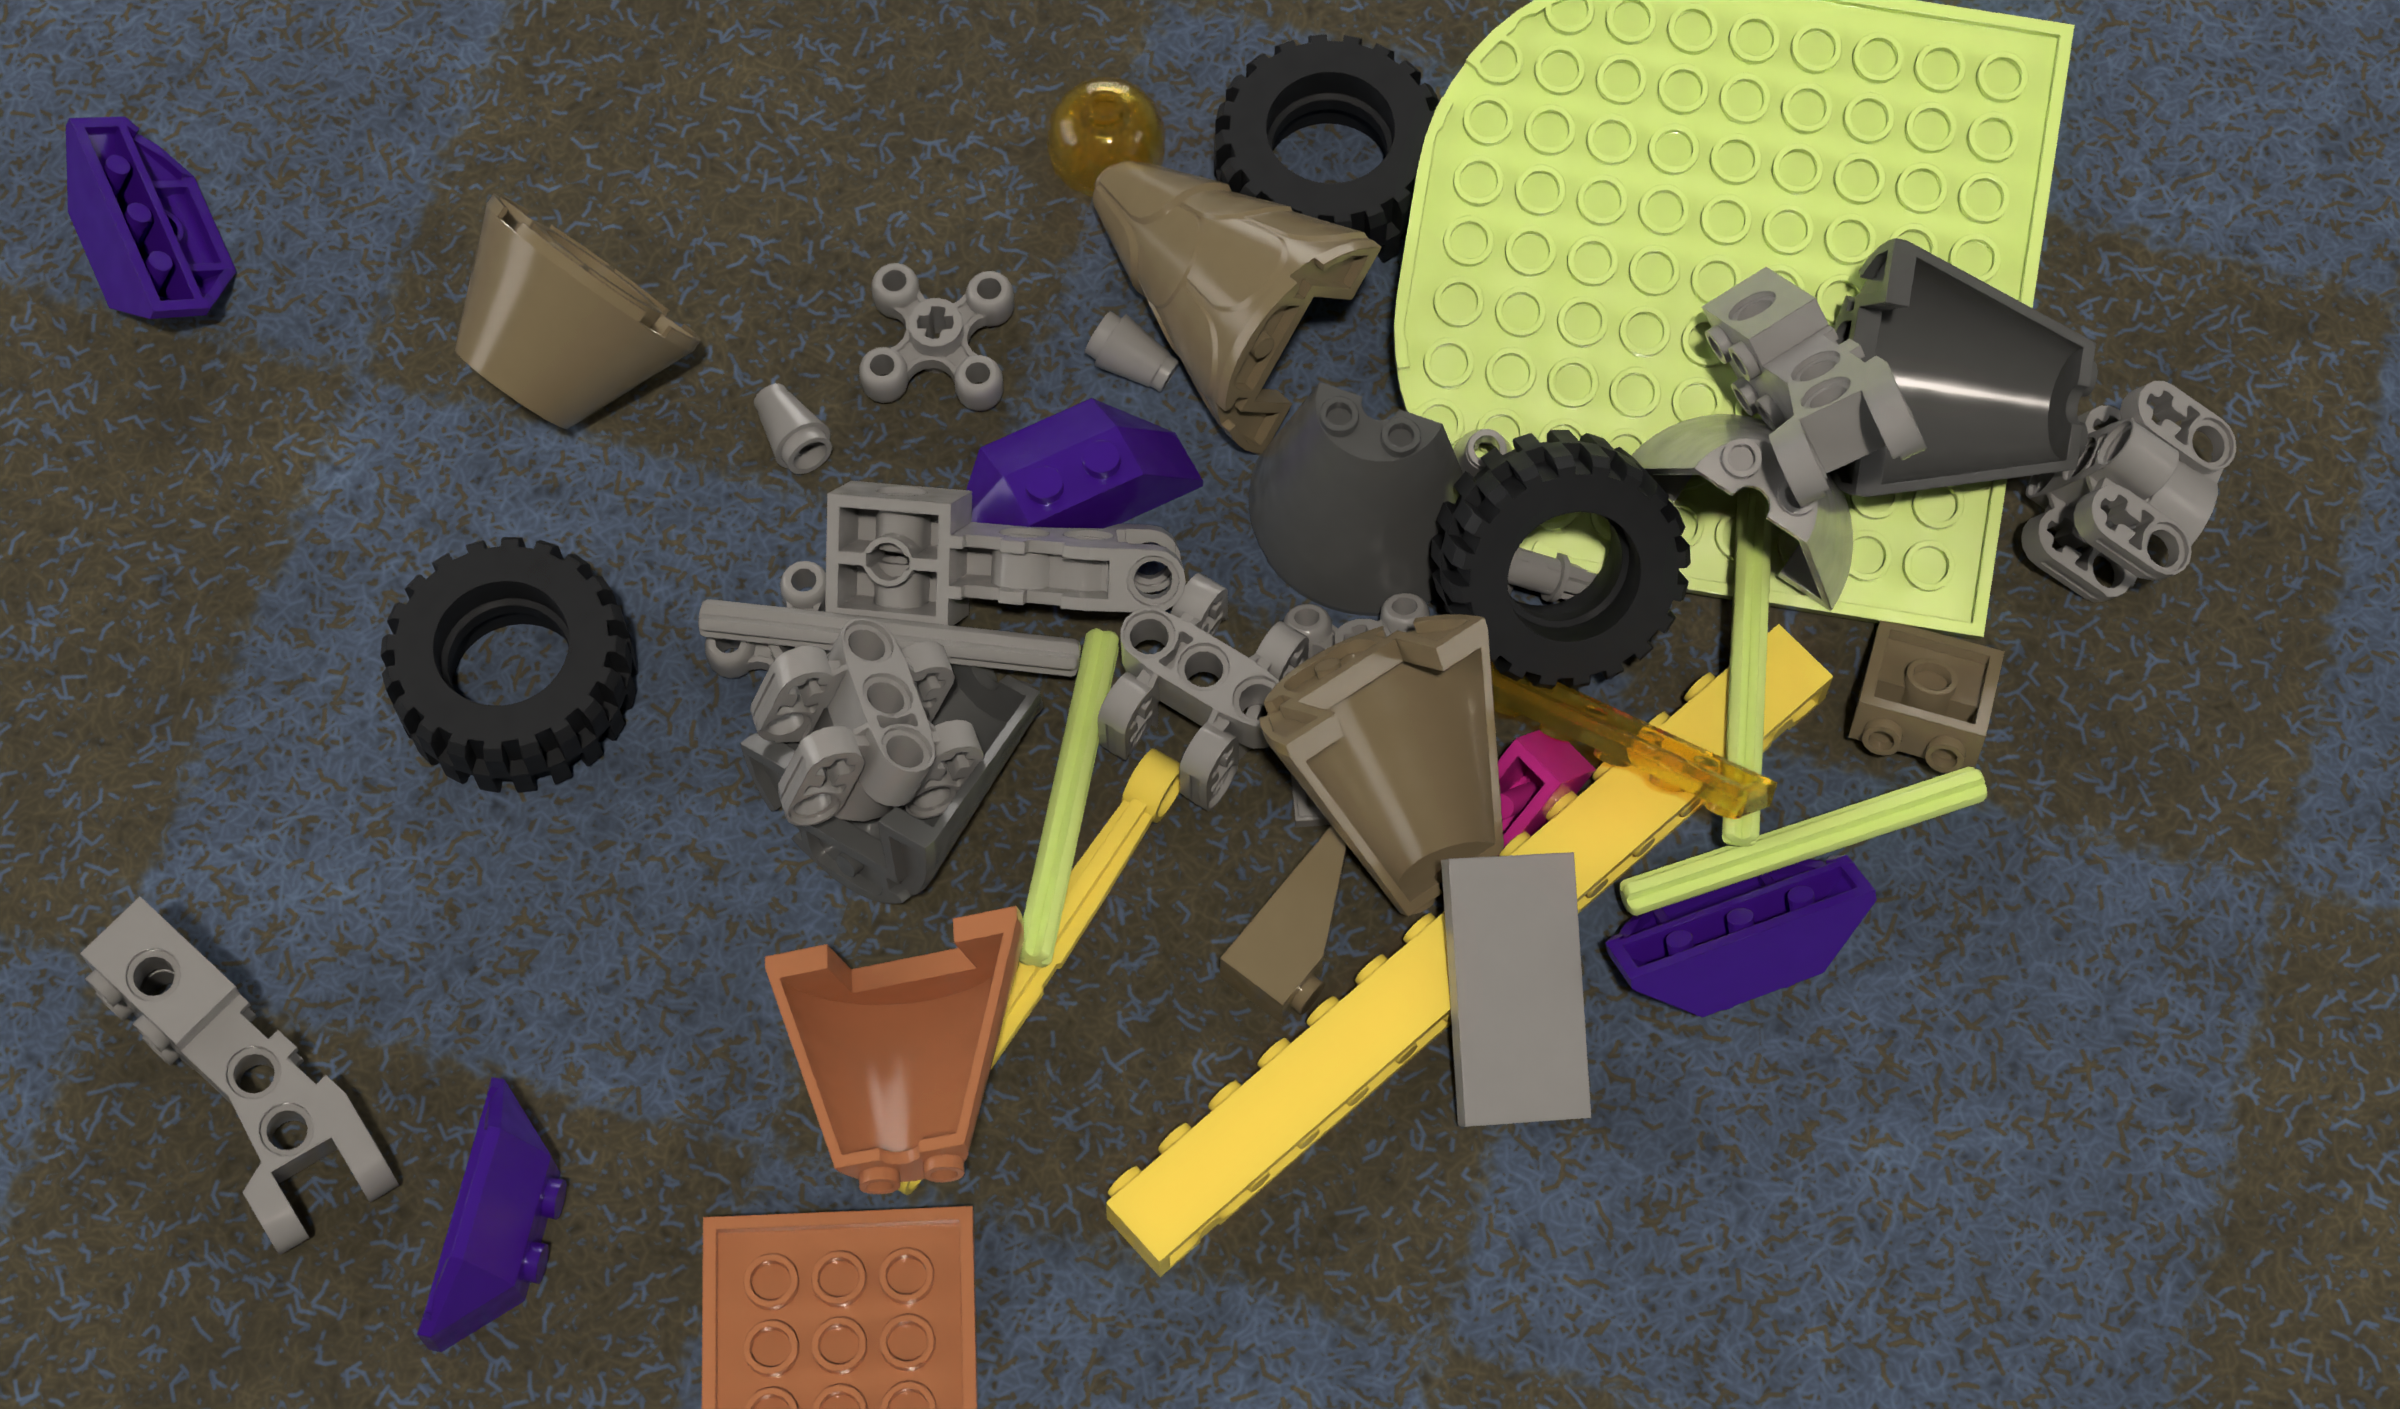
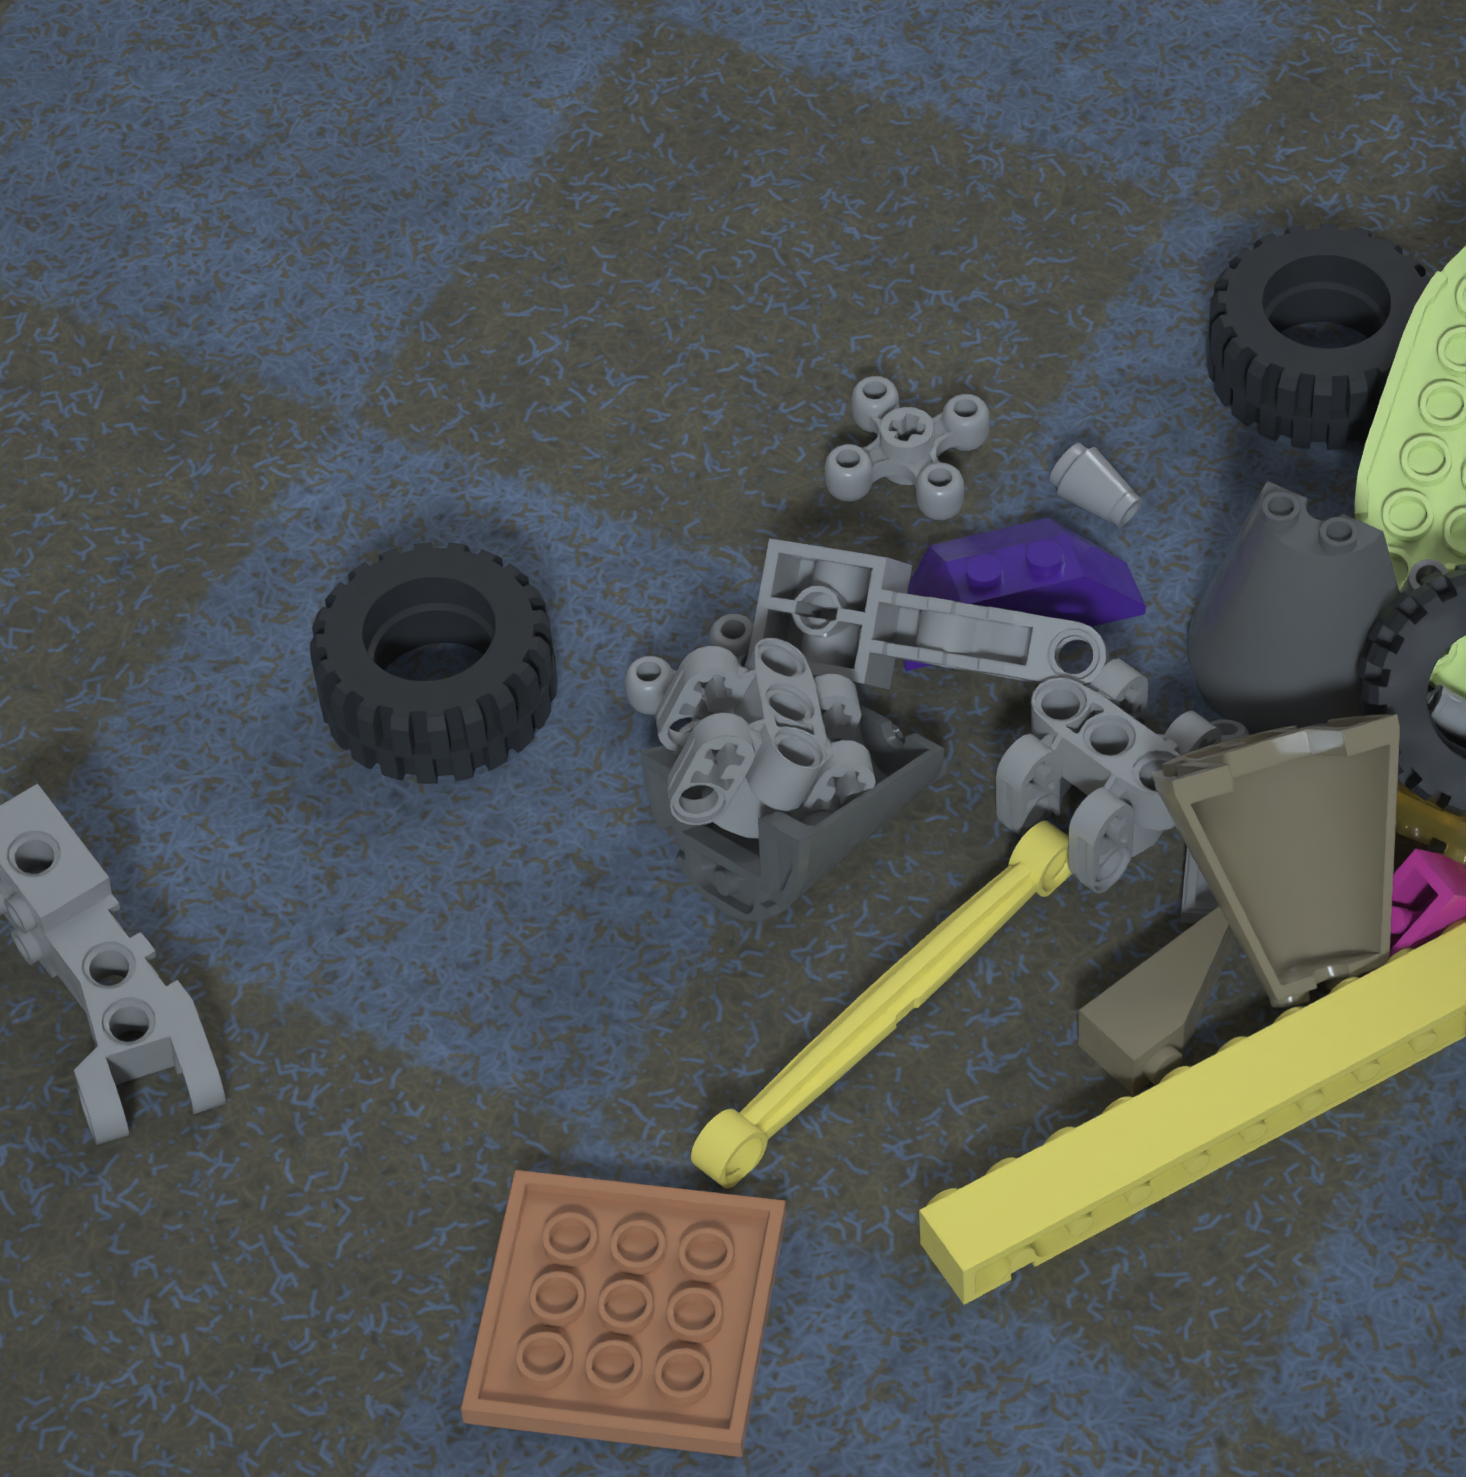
camera: 15 degrees right, 15 degrees down
(142, 222) = (174, 256): dark purple wedge -> none
(495, 1225) = (308, 1148): dark purple wedge -> none
(559, 320) = (546, 372): dark tan cone -> none
(792, 430) = (750, 509): light grey cone -> none
(821, 629) = (876, 699): light grey axle -> none
(900, 1047) = (743, 1044): nougat cone -> none
(1068, 798) = (947, 865): yellowish green axle -> none
(1101, 126) = (1107, 302): clear yellow cylinder -> none
(1226, 280) = (1195, 421): dark tan cone -> none
(1516, 989) = (1376, 1081): light grey tile -> none

